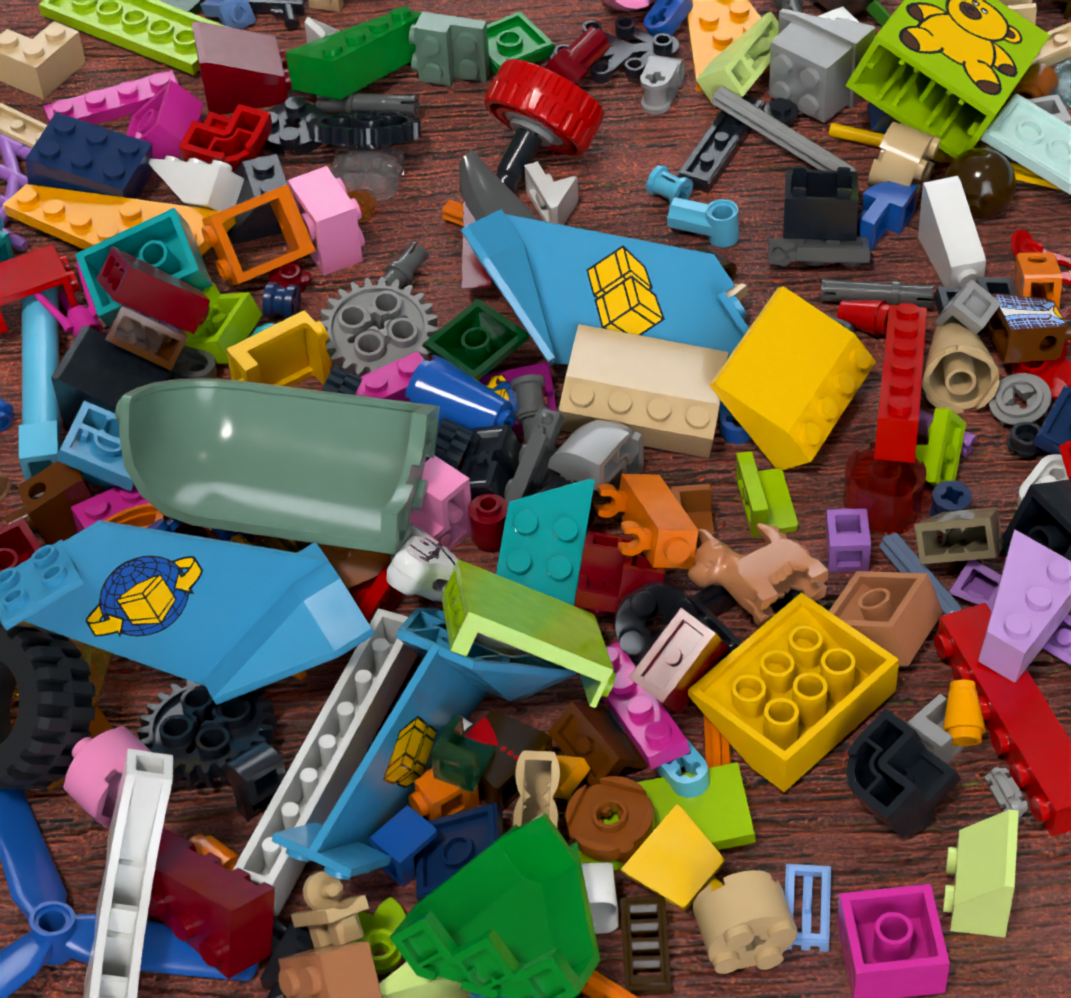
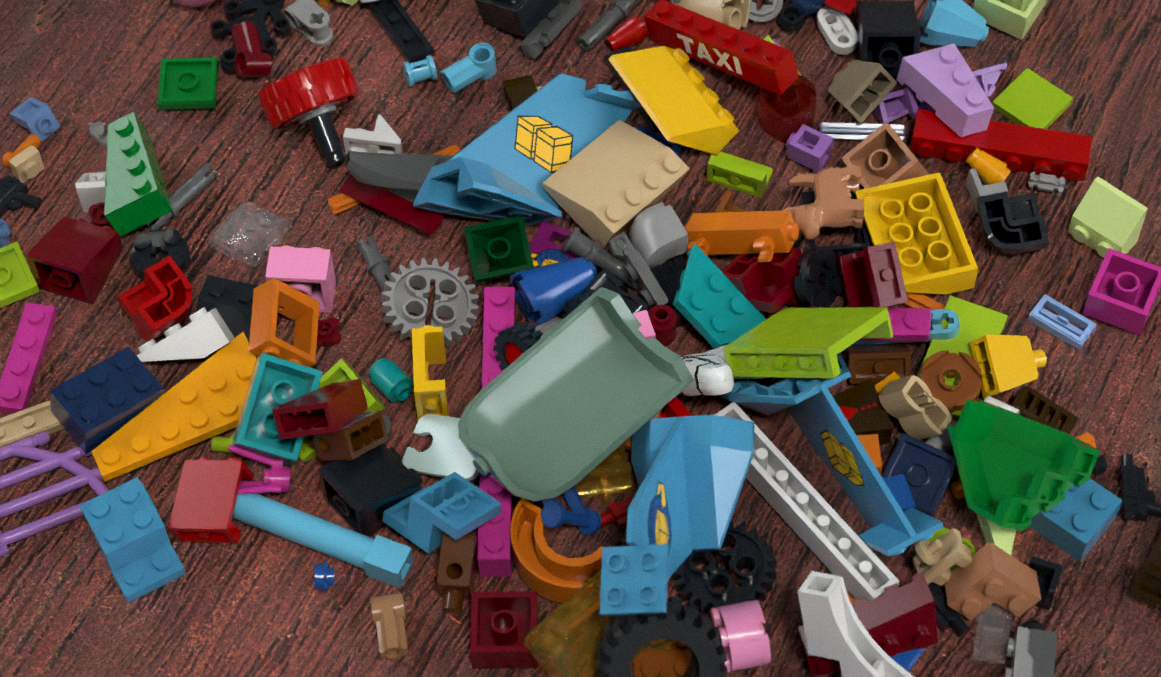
camera: 60 degrees left, 10 degrees up
(166, 120) = (92, 334): dark pink slope -> none
(254, 778) = (798, 551): black brick -> none
(281, 300) = (350, 346): dark blue wheel -> none
(364, 128) = (222, 210): black gear -> none
(449, 49) = (177, 117): sand green plate -> none
(459, 758) = (869, 432): clear green panel -> none
(745, 922) = (1072, 352): tan brick -> none
(950, 497) = (824, 78): dark blue wheel -> none

